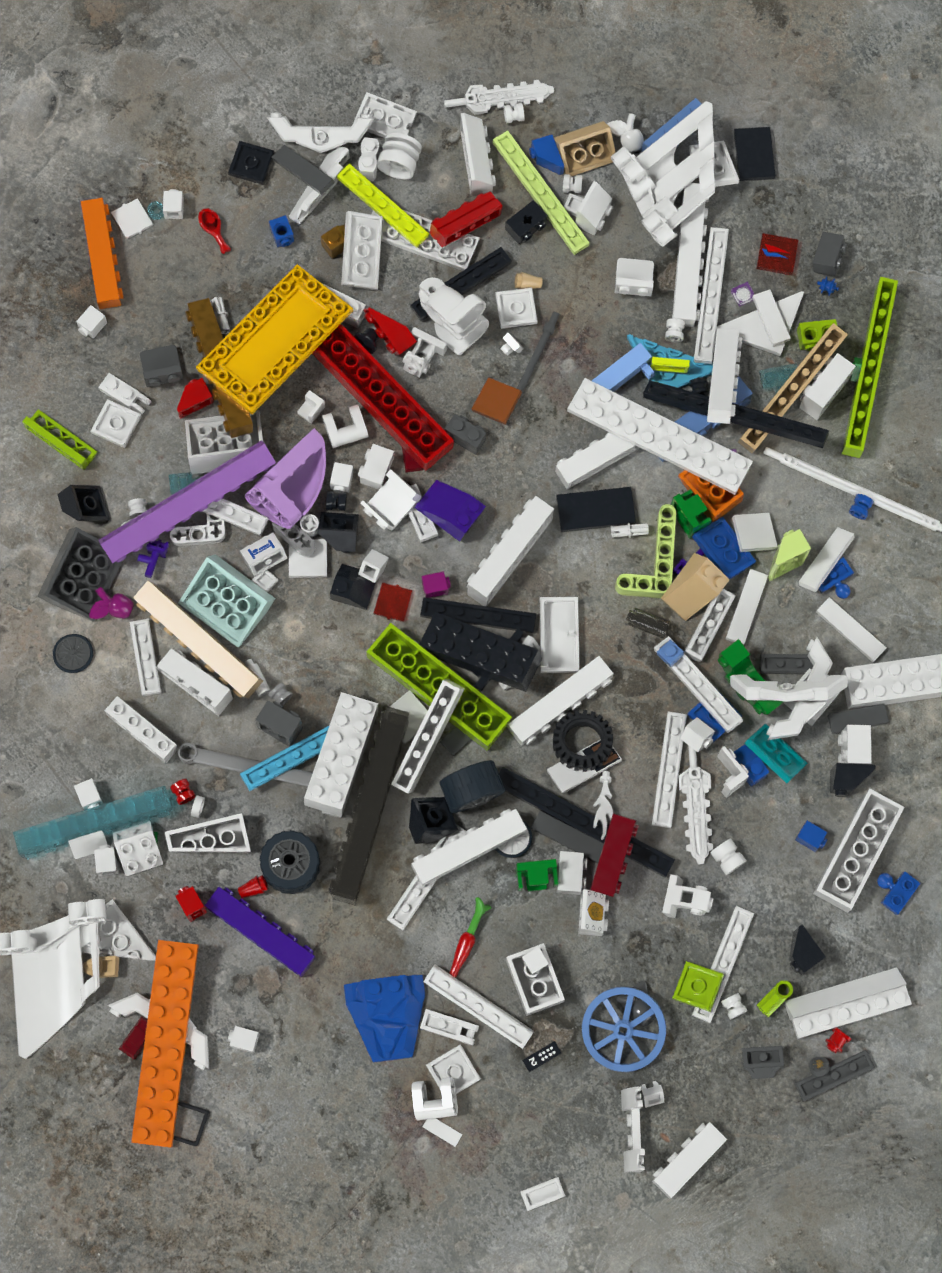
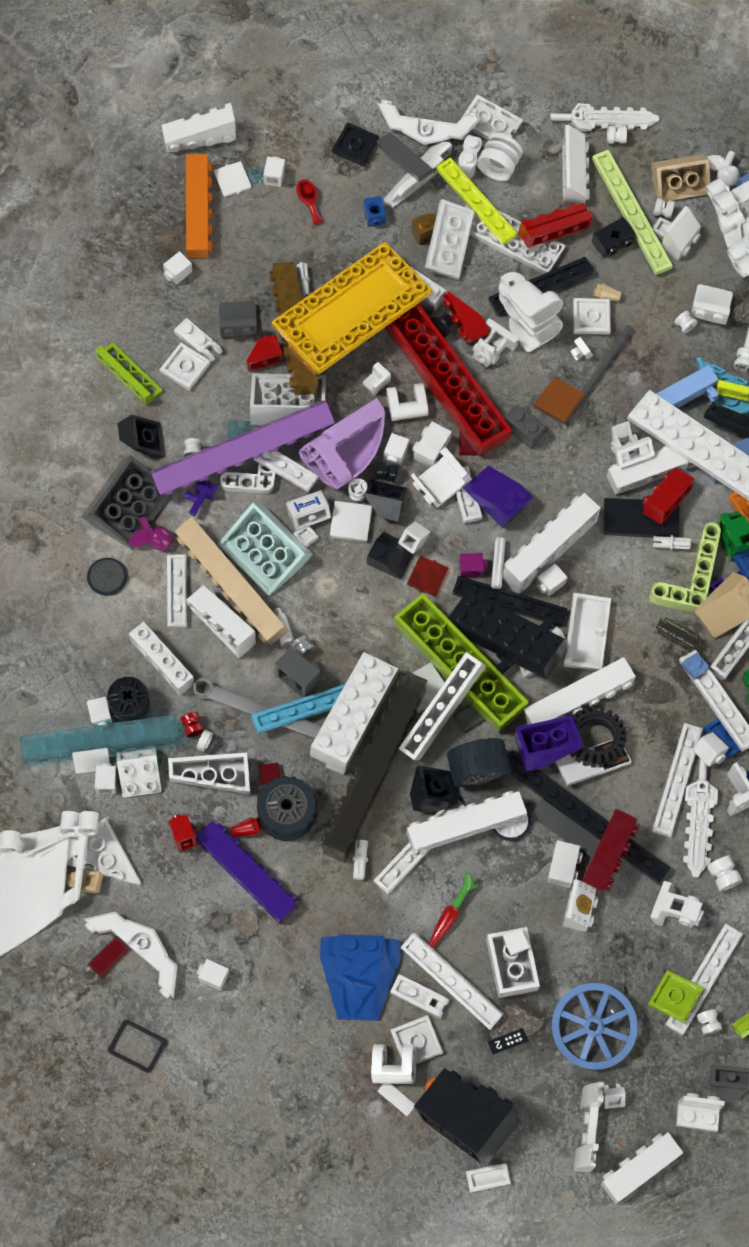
camera: 10 degrees right, 5 degrees down
(91, 173) = (200, 130): none -> white wedge
(116, 788) = (128, 709): none -> black wheel
(165, 1043) = (134, 965): orange plate -> none
(267, 828) = (269, 772): none -> dark red tile
(296, 542) = (342, 504): light grey beam -> none
(370, 900) = (360, 859): none -> white axle
(461, 582) = (498, 563): none -> white axle
(513, 1138) = (466, 1115): none -> black piece
(516, 588) = (551, 580): none -> white brick
(536, 754) = (547, 742): none -> dark purple slope
(536, 874) = (530, 859): green panel -> none
(547, 154) = (643, 177): blue slope -> none
(569, 434) = (624, 442): none -> white tile
(605, 807) = (608, 804): white piece -> none
(611, 300) = (686, 322): none -> white wheel
(619, 483) = (668, 495): none -> red brick
(736, 1098) = (699, 1112): none -> white bracket

